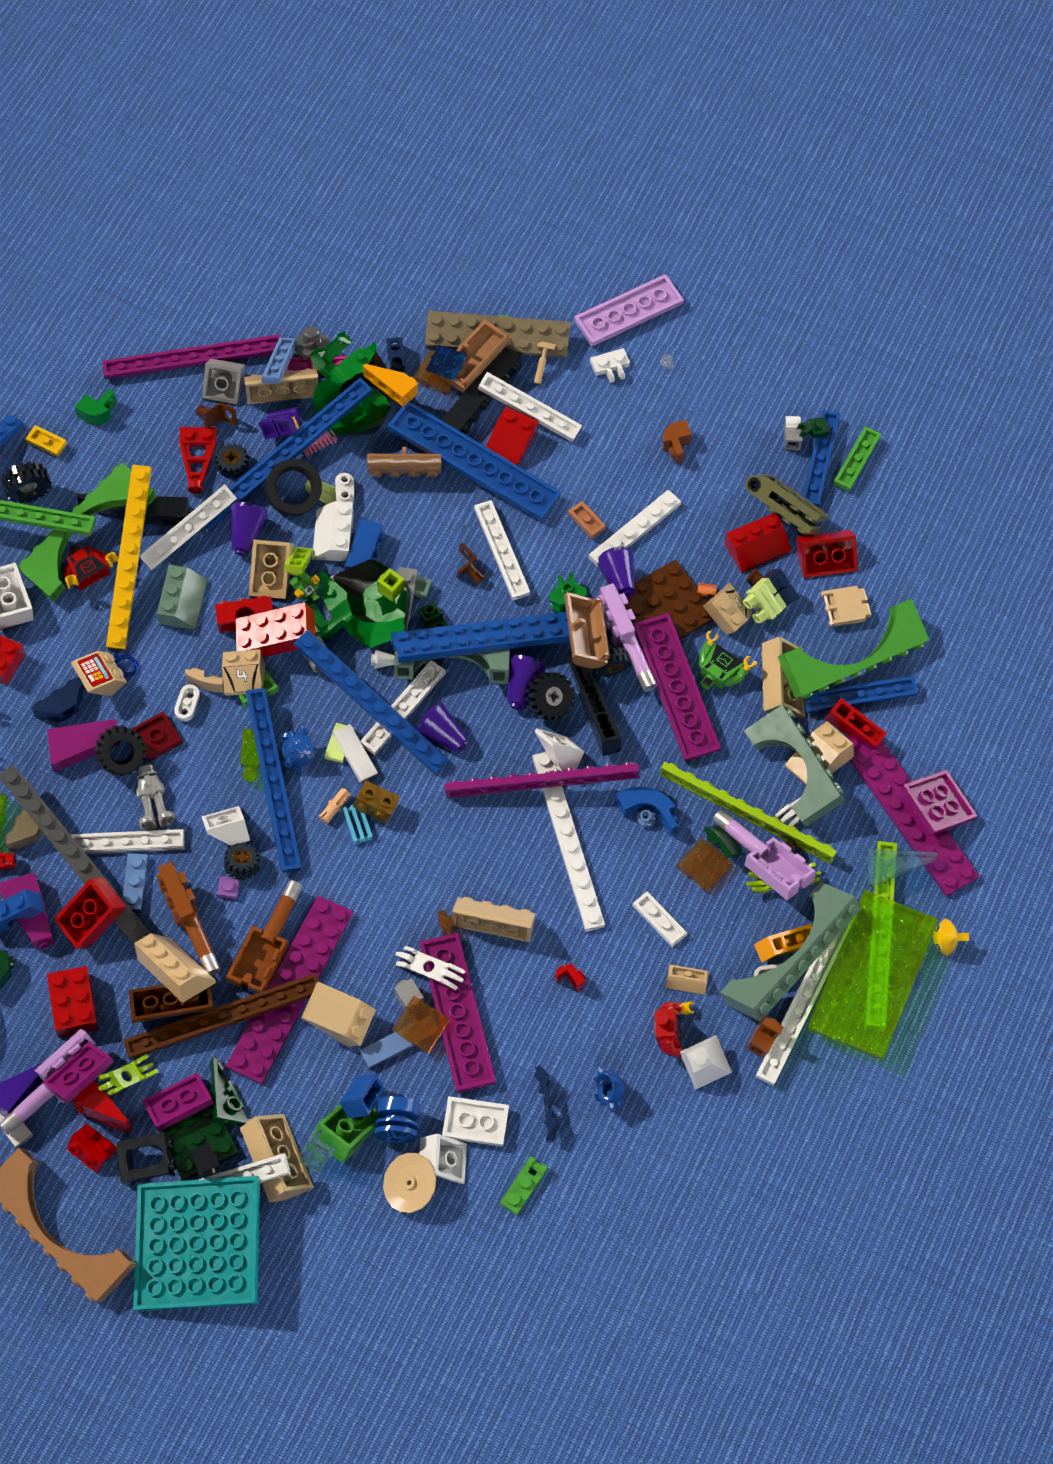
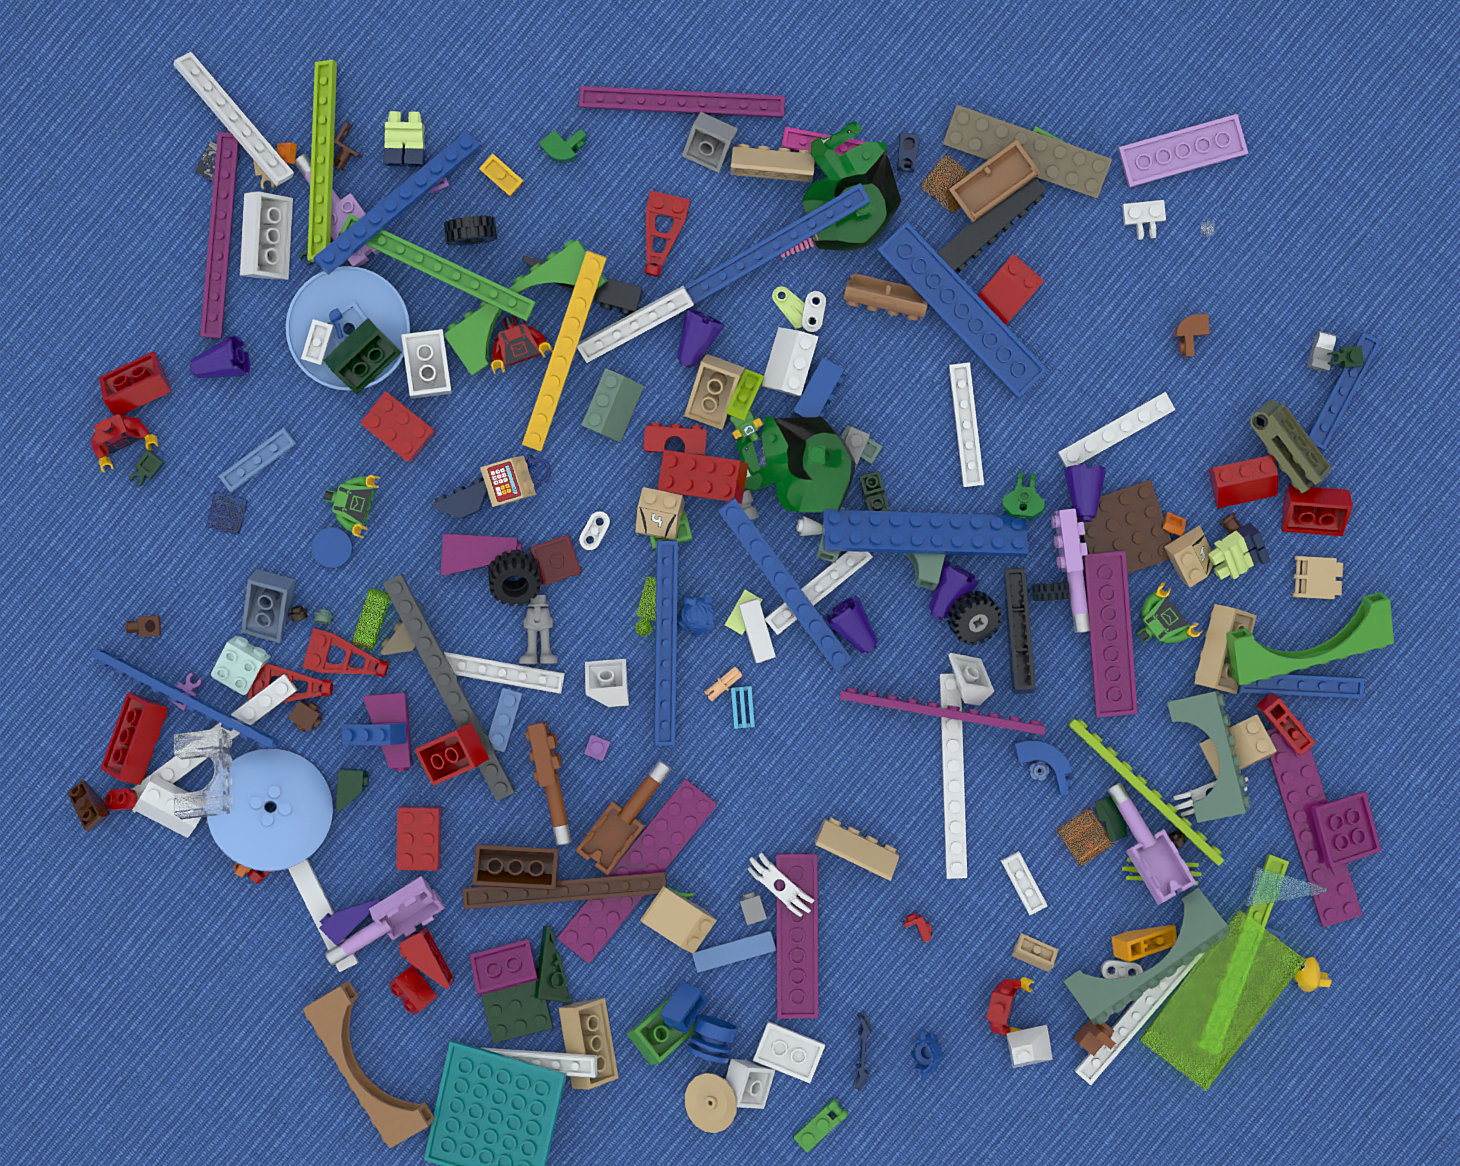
camera: 20 degrees right, 25 degrees up
(78, 1072) = (409, 929): magenta plate -> none
(129, 1175) = (482, 1010): black panel -> none
(132, 1070) = (467, 930): lime piece -> none
(172, 966) = (526, 830): tan slope -> none
(197, 677) = (612, 505): tan slope -> none
(204, 1160) = (517, 1040): black brick -> none
(216, 414) = (690, 185): reddish brown bracket -> none
(238, 463) = (697, 253): black wheel -> none
(241, 861) = (621, 722): black wheel -> none
(279, 361) = (775, 140): medium blue tile -> none
(281, 423) = (762, 216): dark purple hips -> none
(293, 465) = (763, 325): black tyre -> none
(309, 341) = (816, 117): dark grey plate -> none
(316, 1153) = (625, 1057): clear light blue bracket -> none
(376, 801) = (766, 693): pearl gold brick -> none
(390, 584) = (835, 458): lime brick -> none
(393, 383) = (896, 201): light orange slope -> none
(420, 1024) = (757, 945): clear orange slope -> none
(445, 922) = (807, 839): clear orange plate -> none
(446, 362) = (960, 183): clear blue piece -> none
(469, 568) = (925, 440): reddish brown bracket -> none
(529, 406) = (1039, 257): white plate -> none
(542, 360) = (1069, 198): tan piece -> none
(586, 519) = (1067, 409): nougat plate -> none
(586, 631) = (1032, 557): medium nougat container -> none
(857, 459) = (1383, 401): bright green plate -> none

